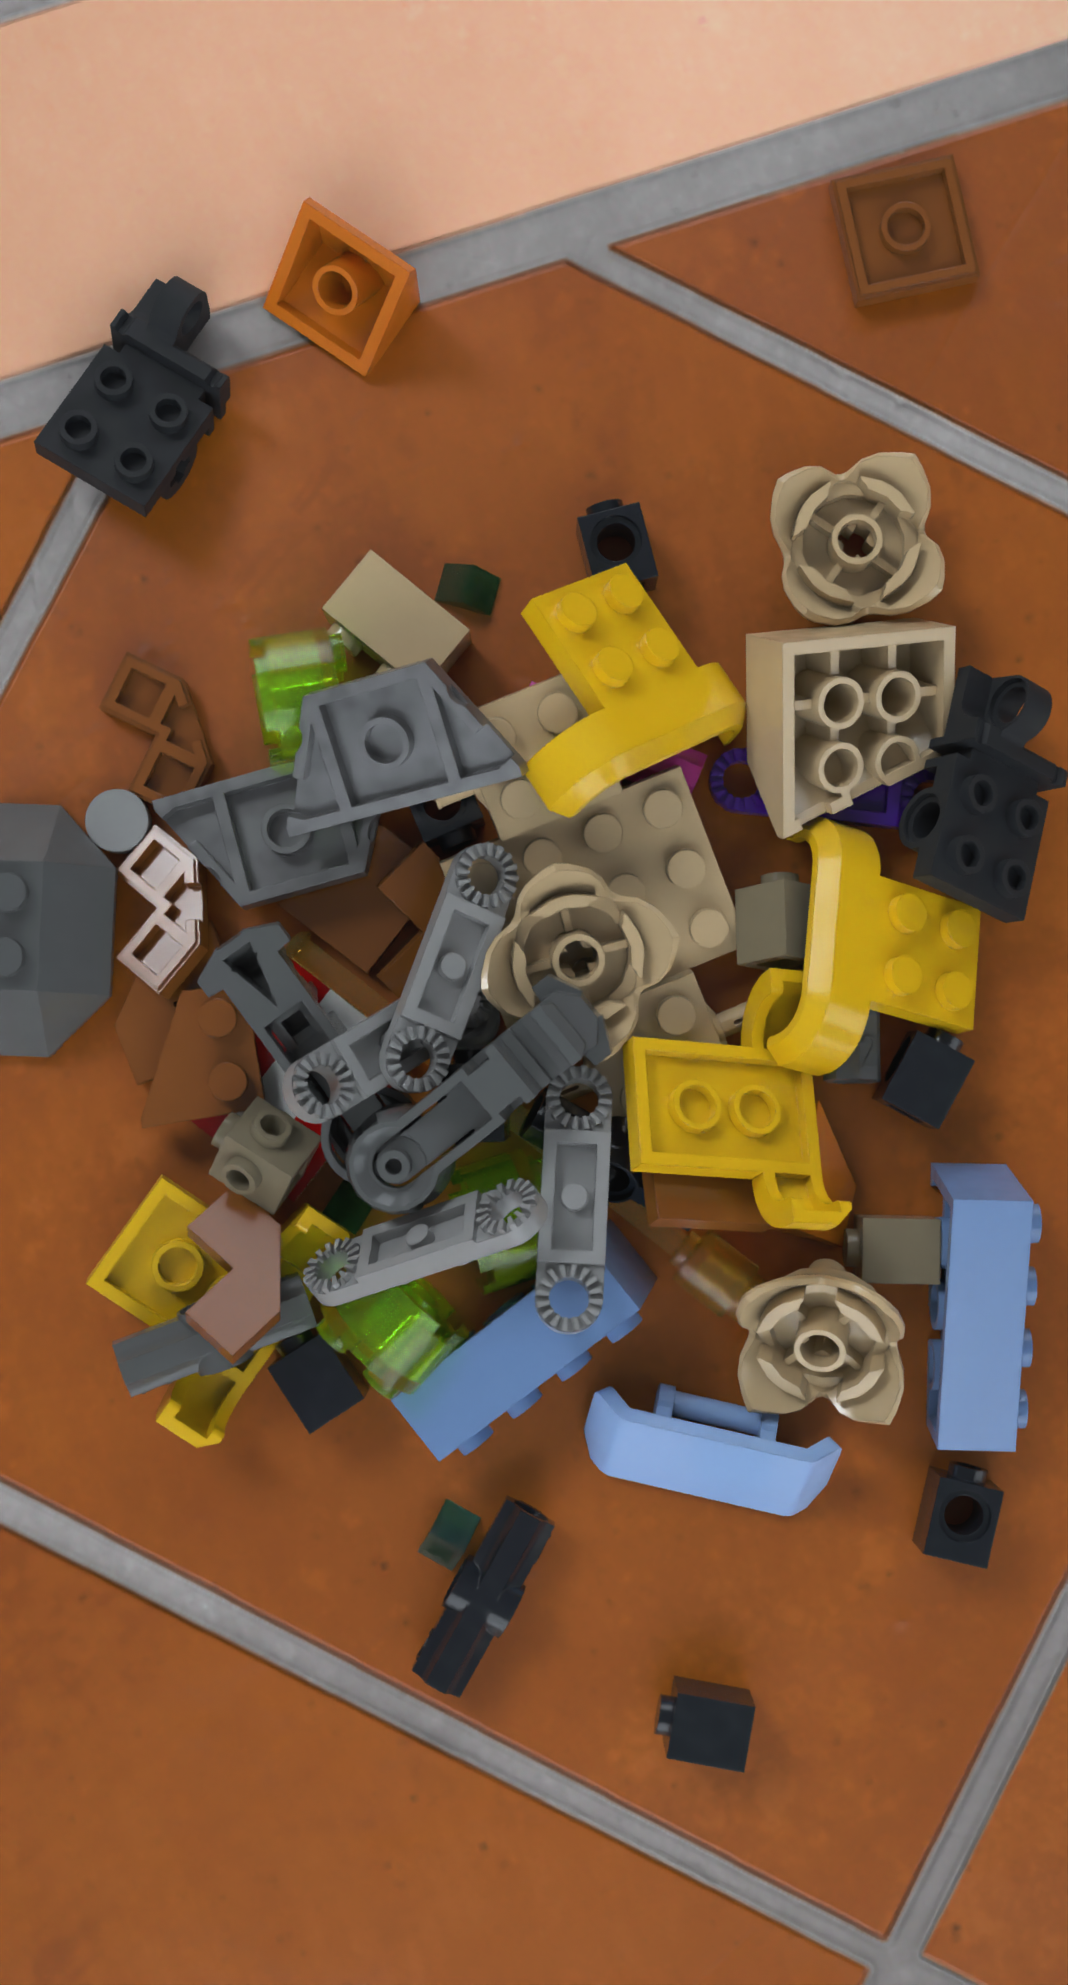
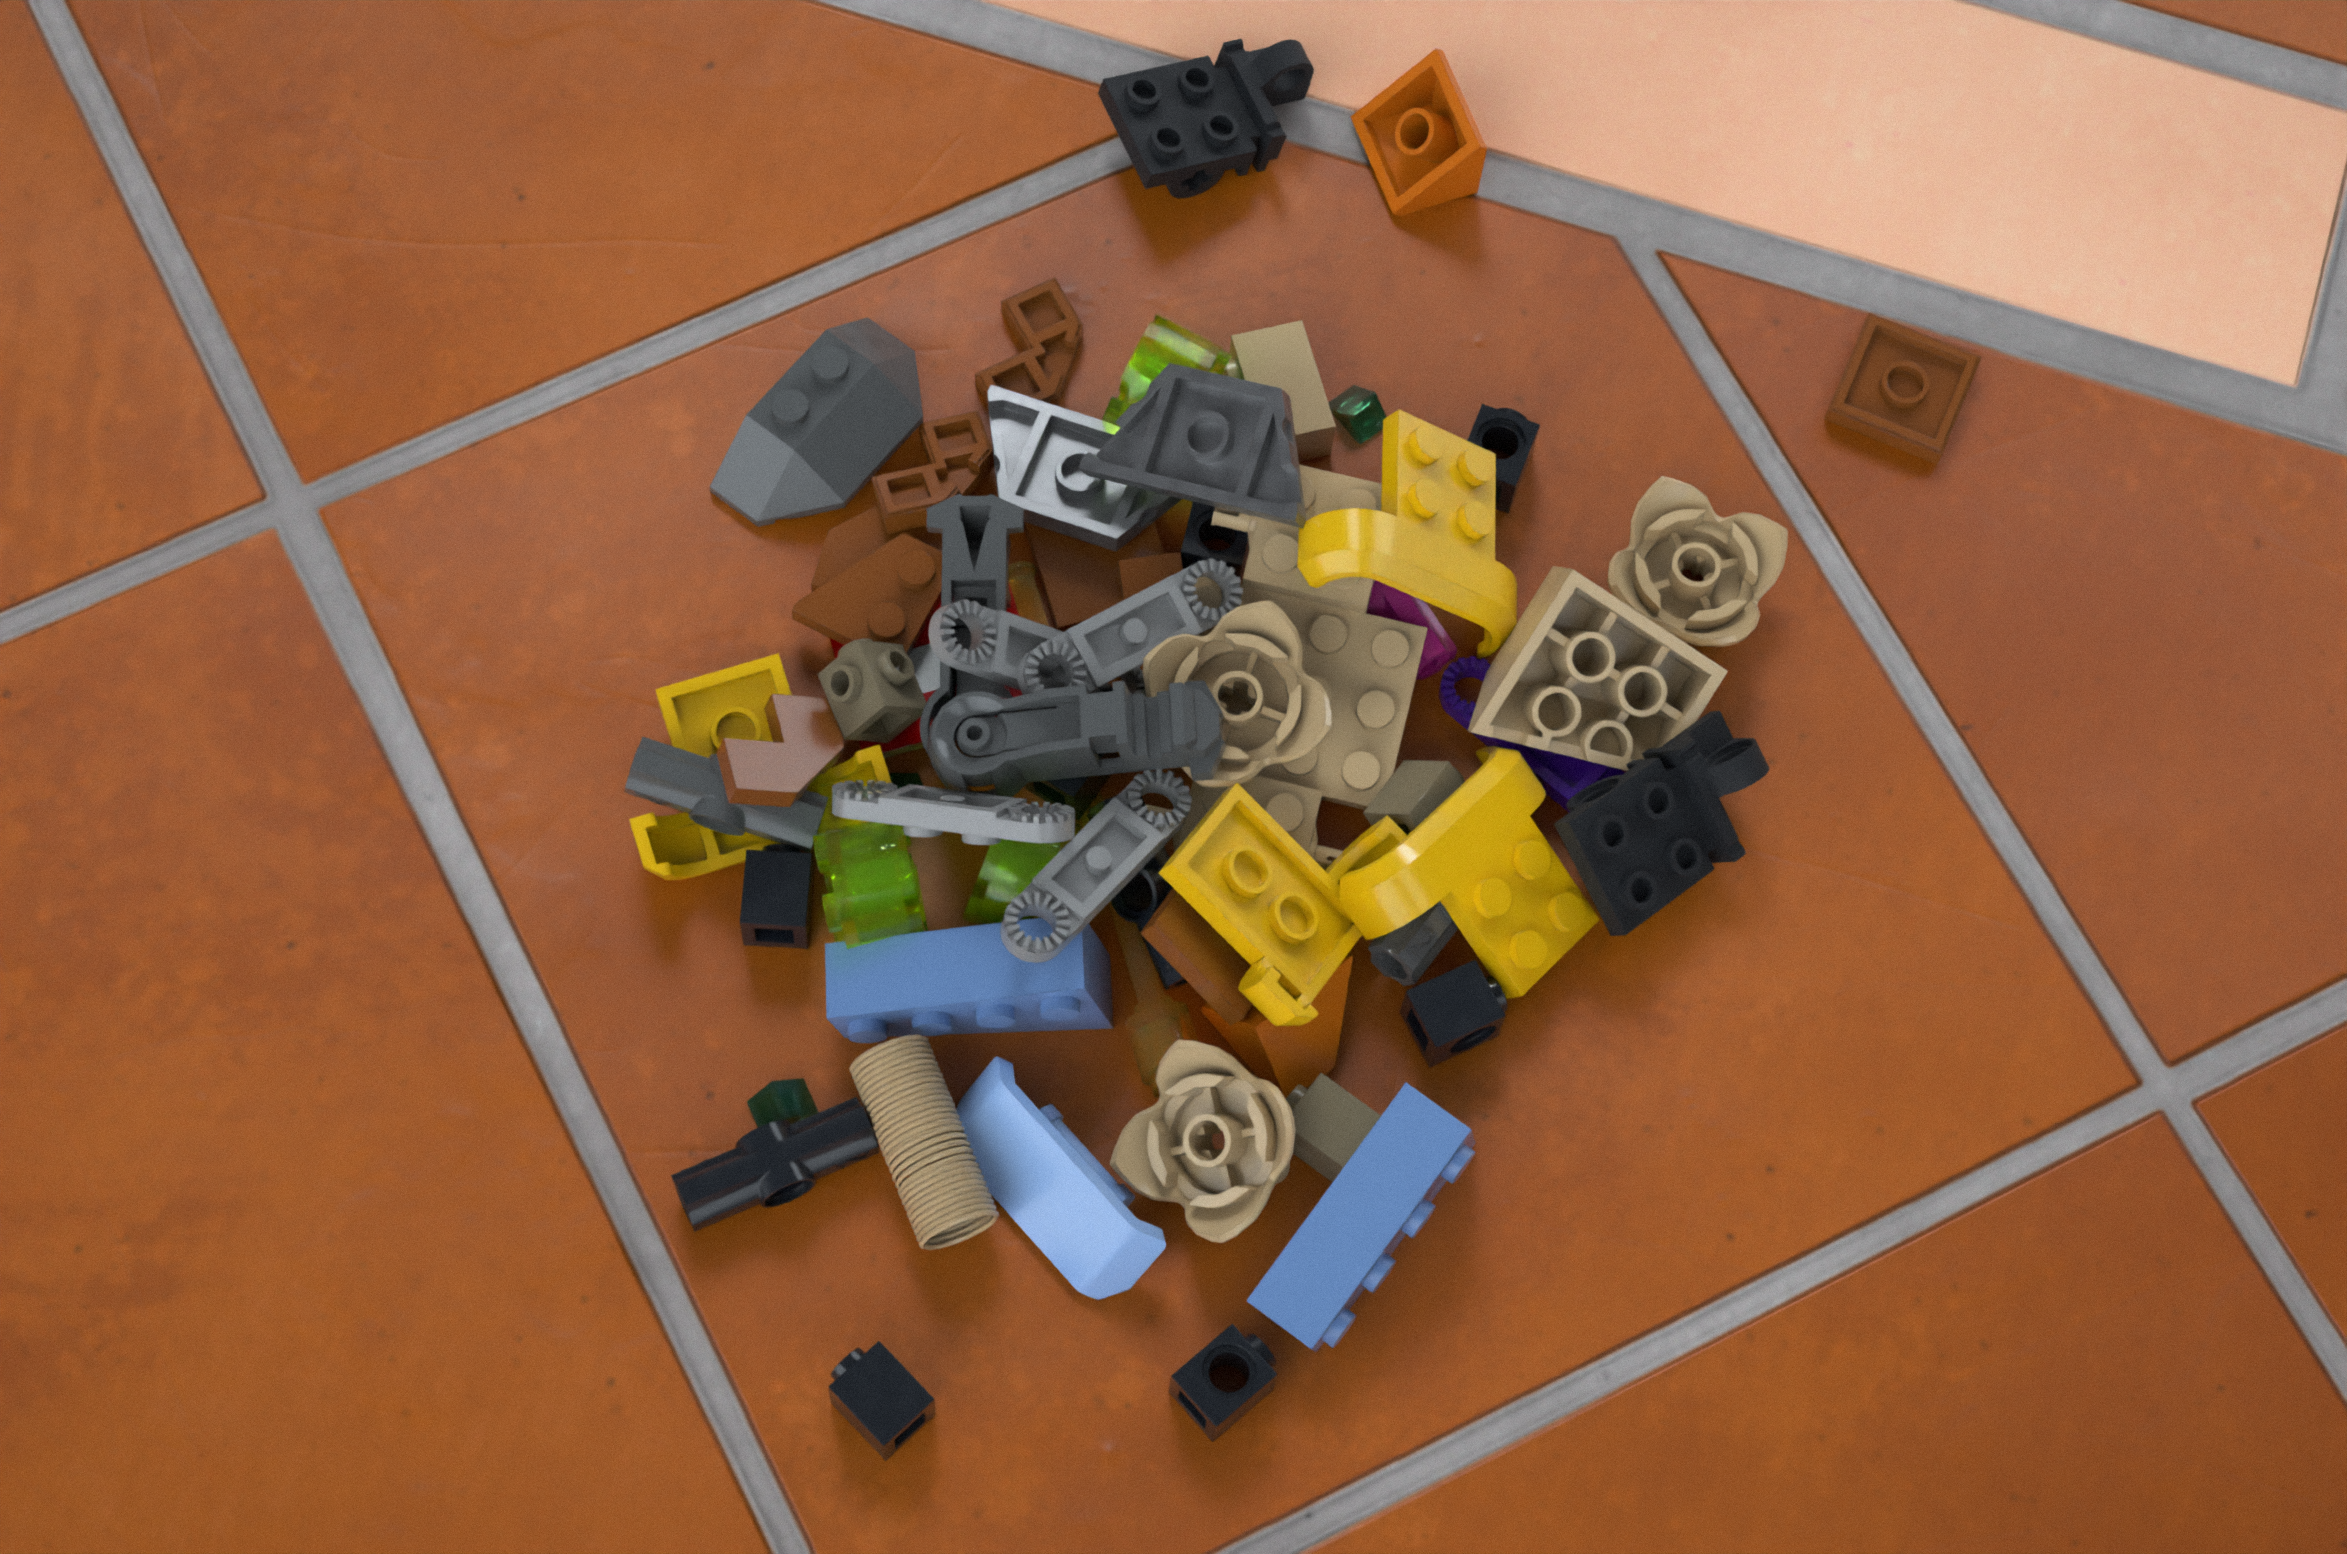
camera: 30 degrees right, 20 degrees down
(117, 821) = (950, 389): light grey tile -> none
(568, 1488) = (916, 1127): none -> tan piece

